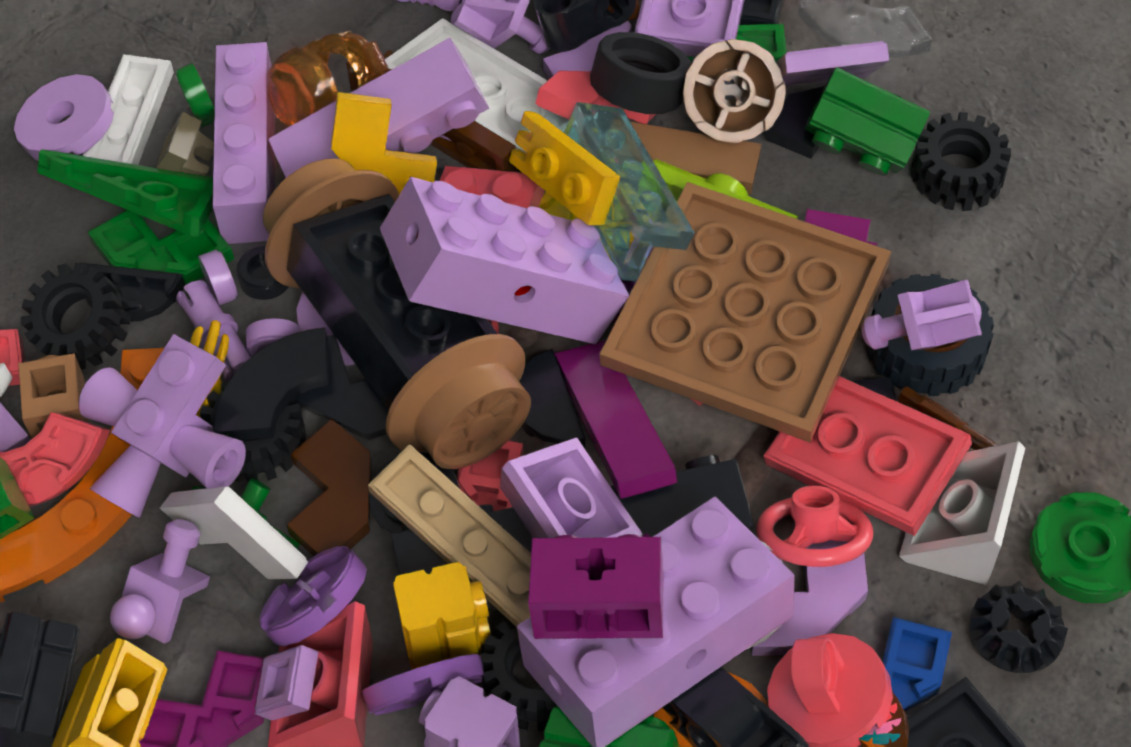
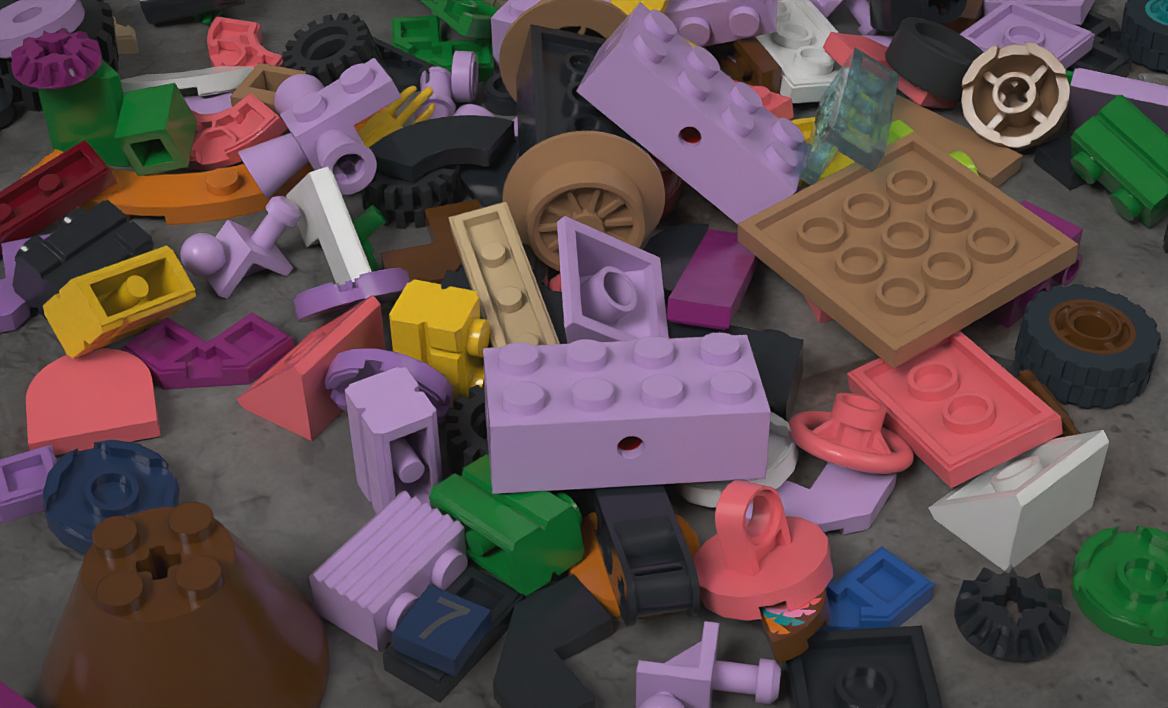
camera: 30 degrees right, 15 degrees down
(286, 683) = (281, 347): lavender tile -> none
(564, 169) = (806, 86): yellow hinge -> none
(596, 587) = (564, 328): magenta brick -> none
(928, 318) = (1080, 306): lavender piece -> none

